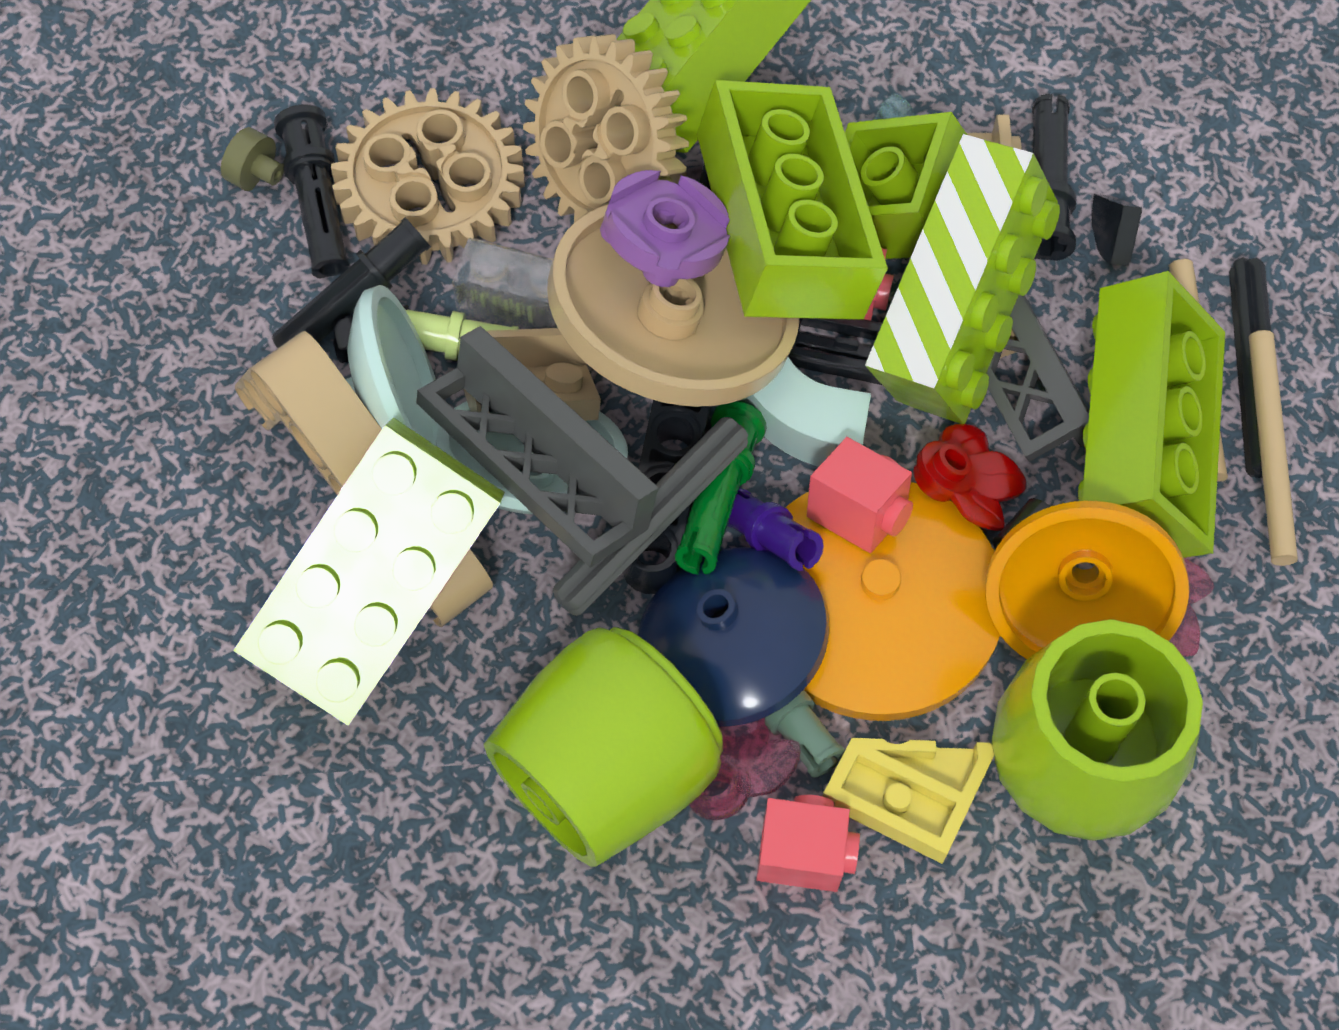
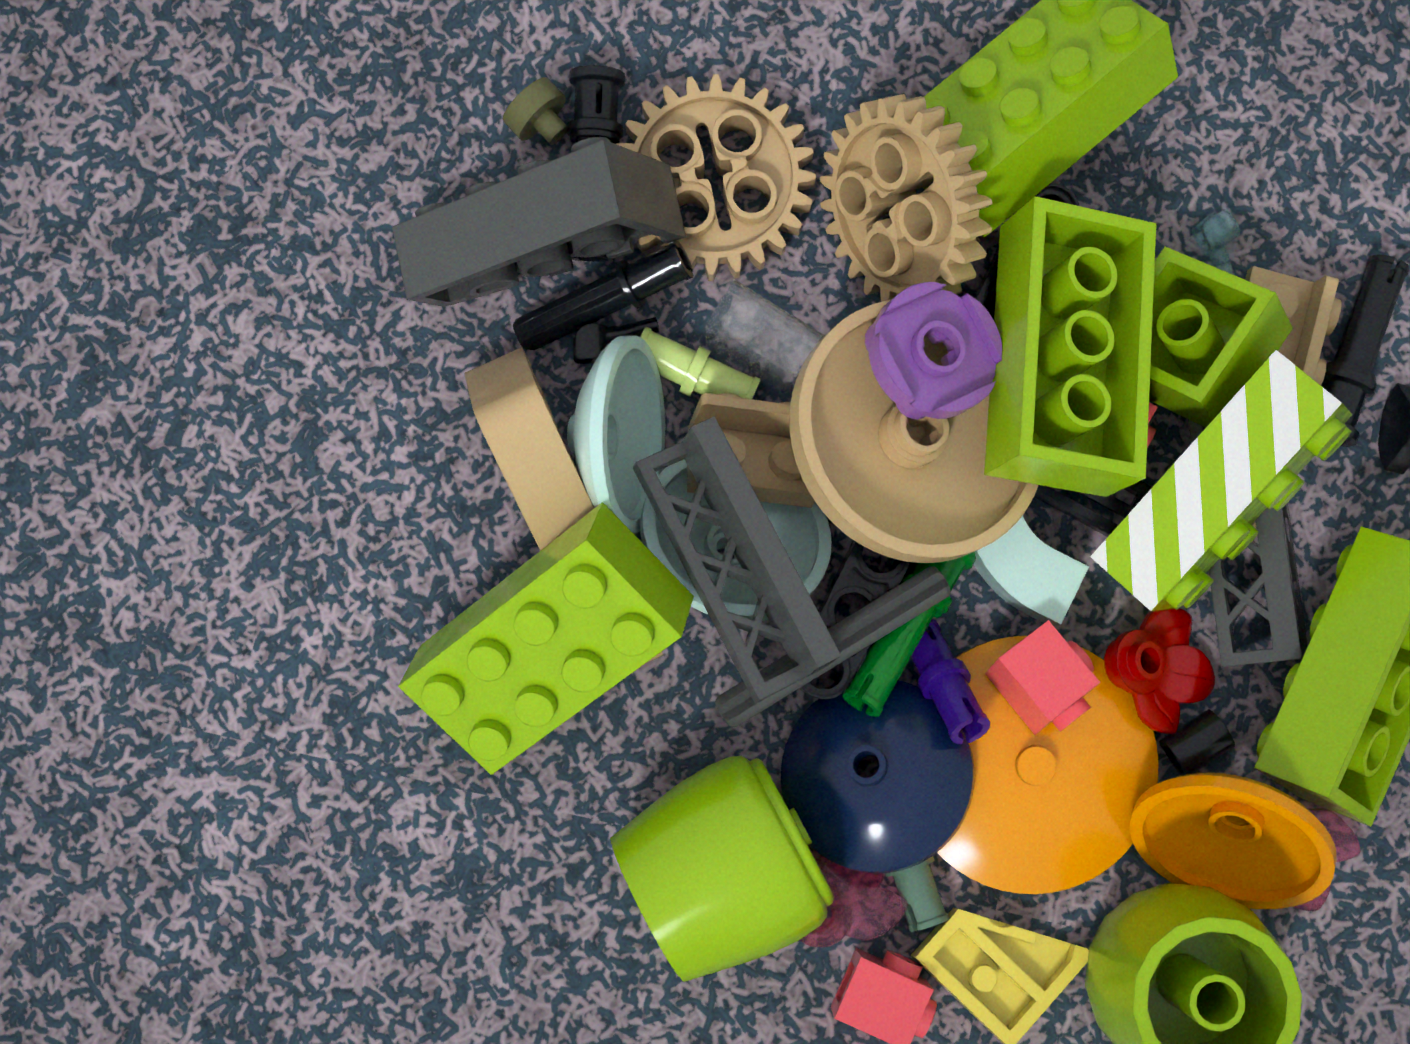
camera: 20 degrees right, 20 degrees up
(271, 234) = (537, 223): none -> dark grey wedge

